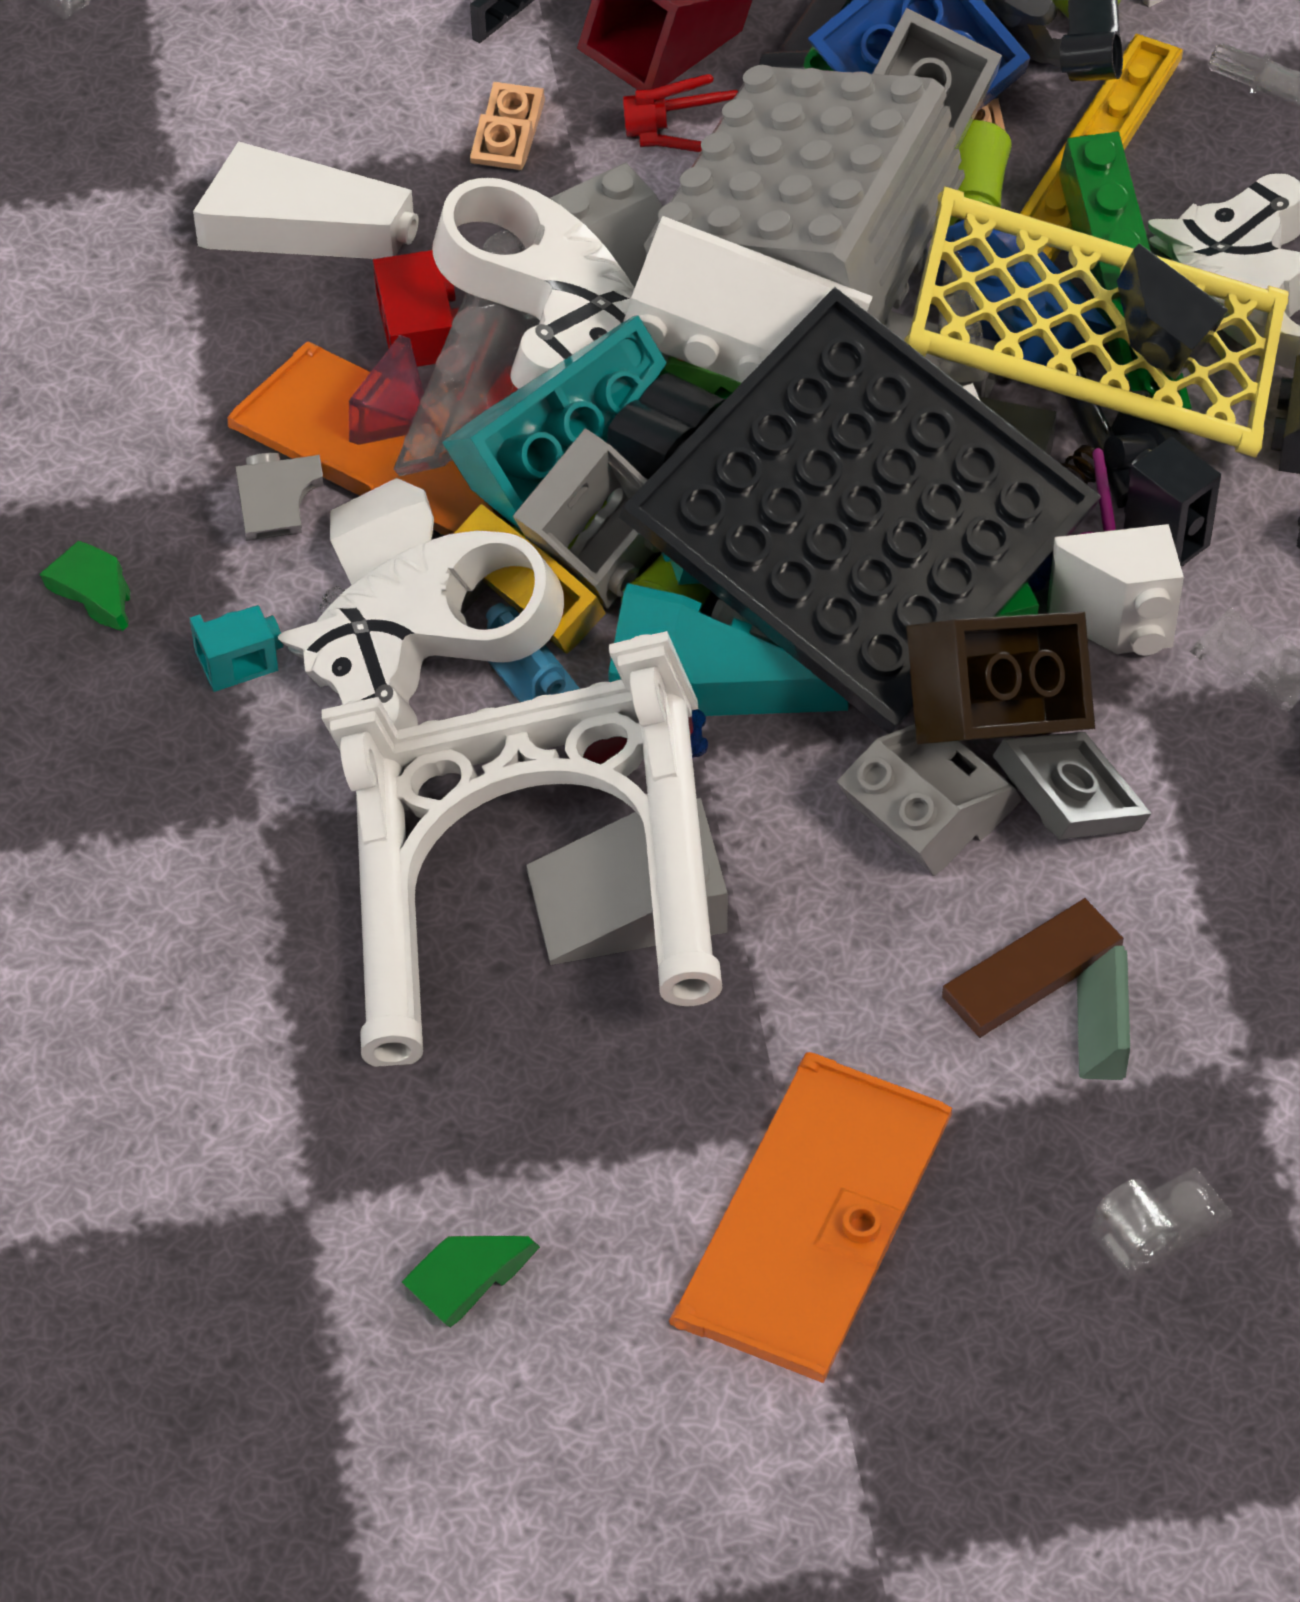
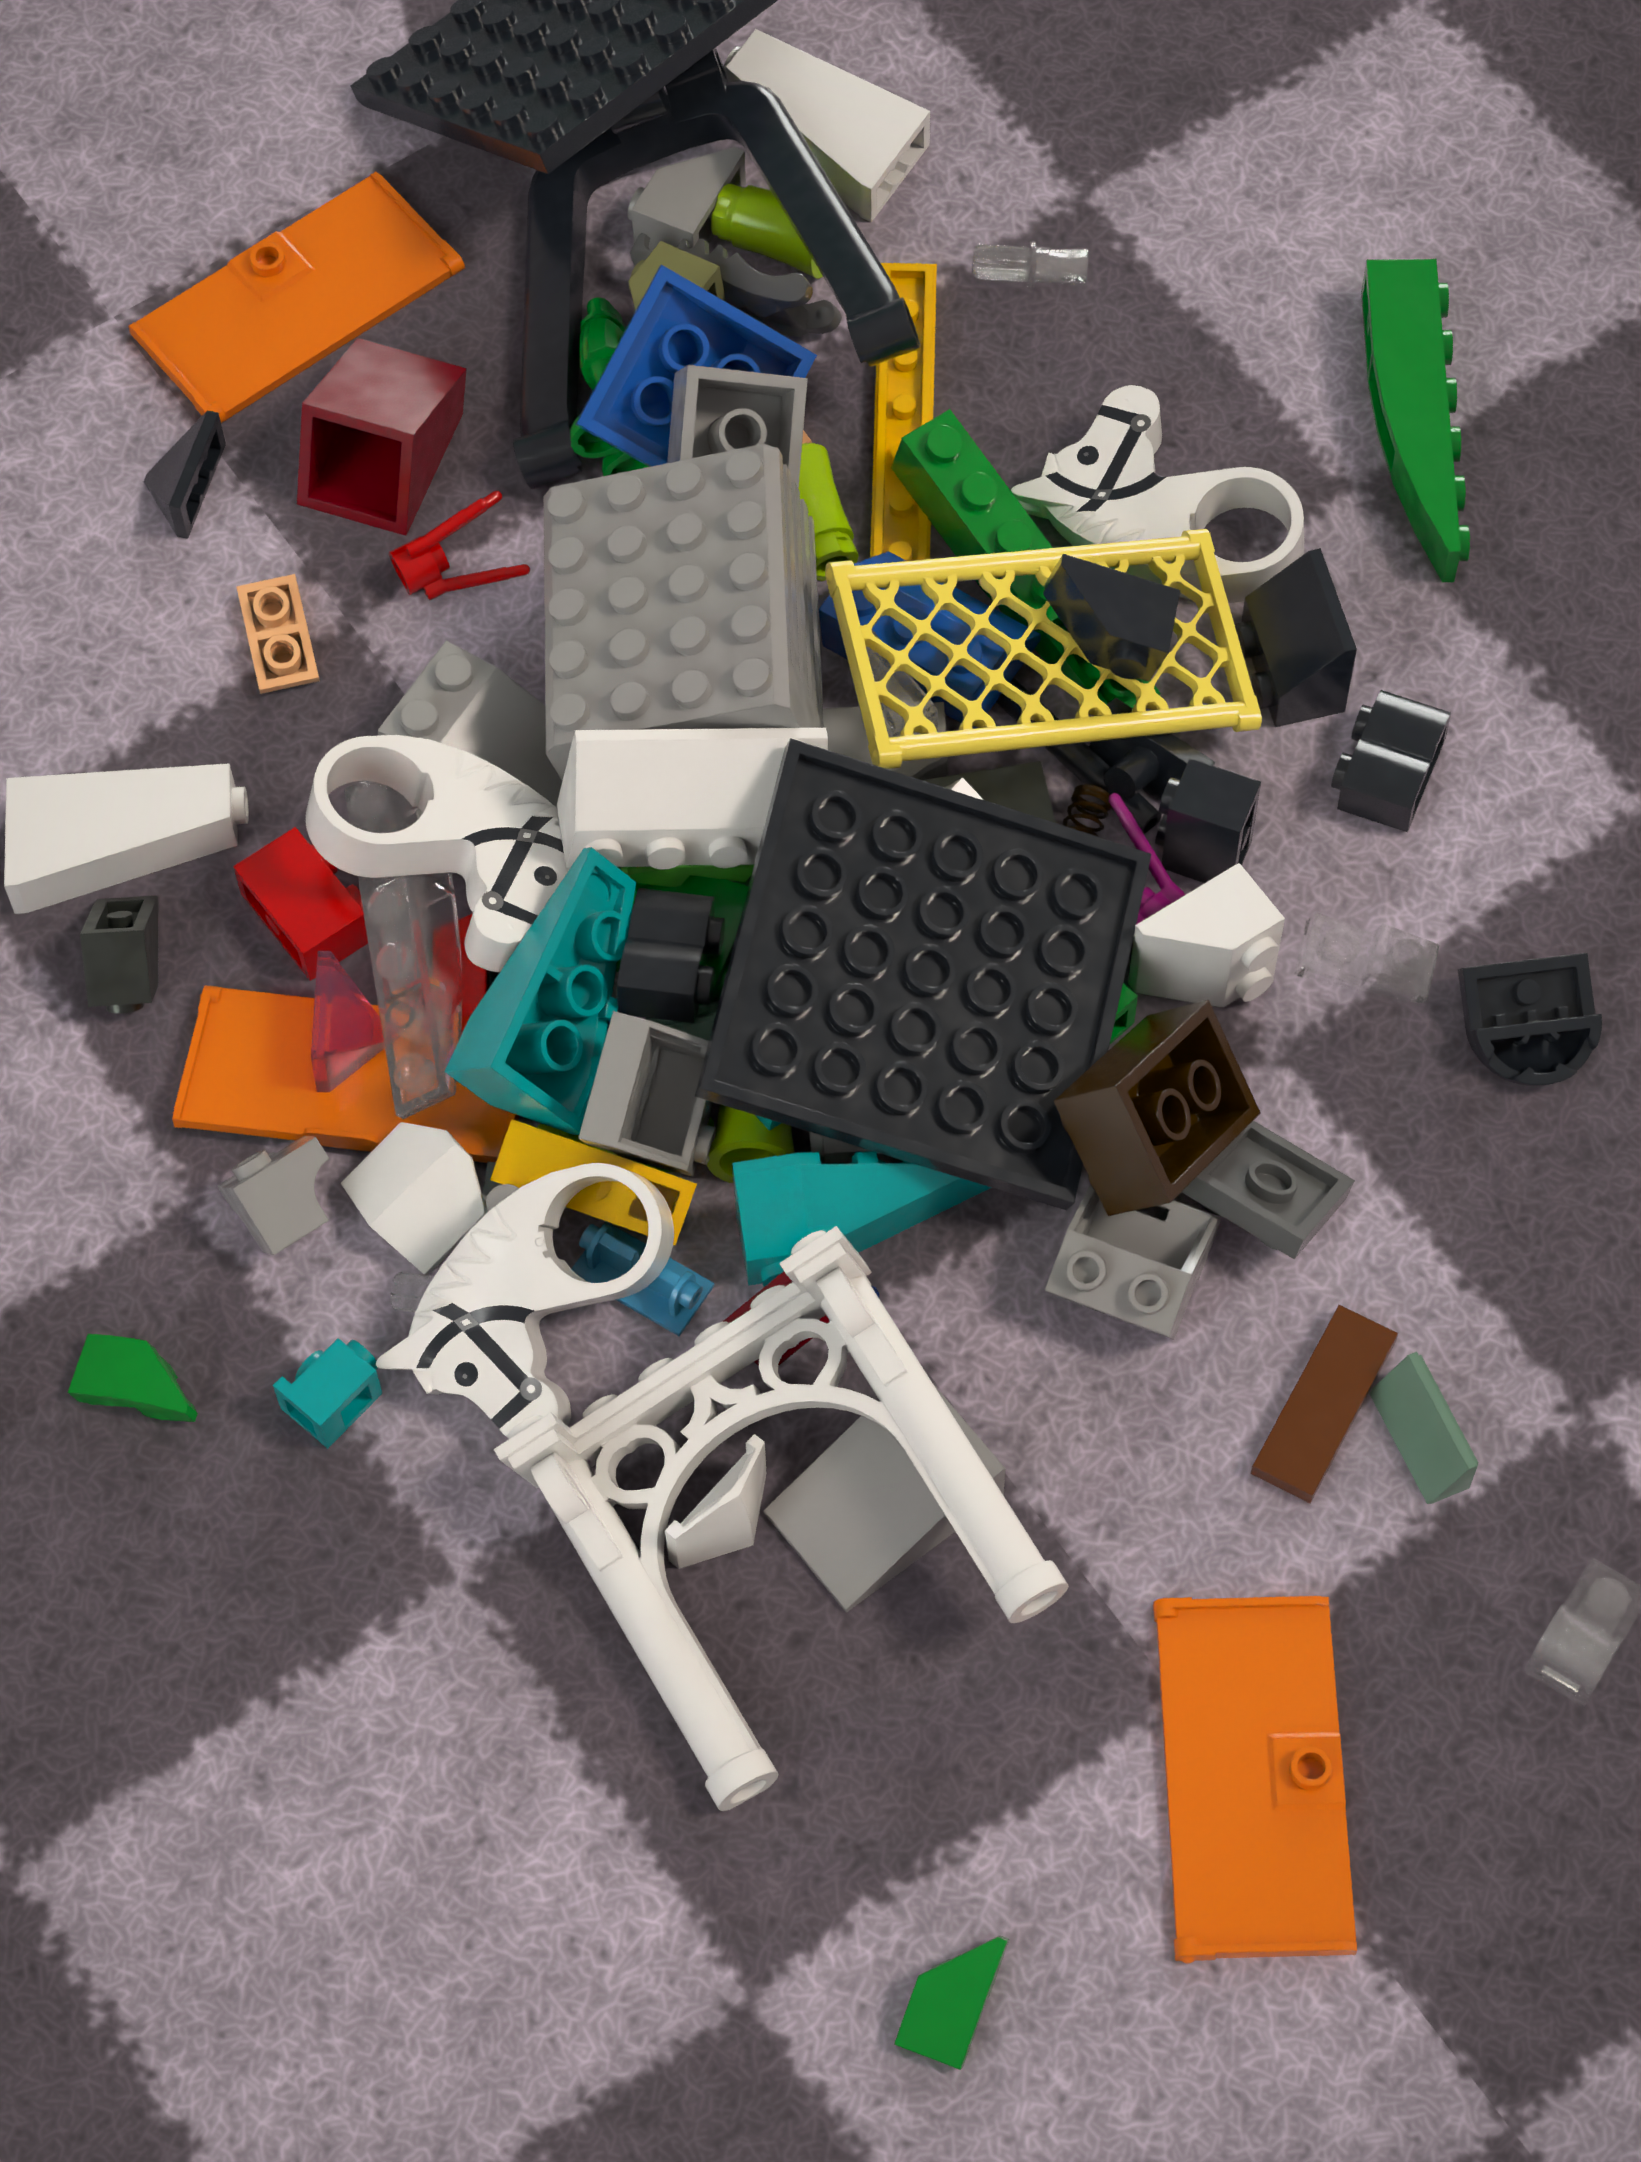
camera: 25 degrees left, 10 degrees up
(255, 294) = (121, 953): none -> pearl dark grey slope
(488, 846) = (725, 1516): none -> white slope

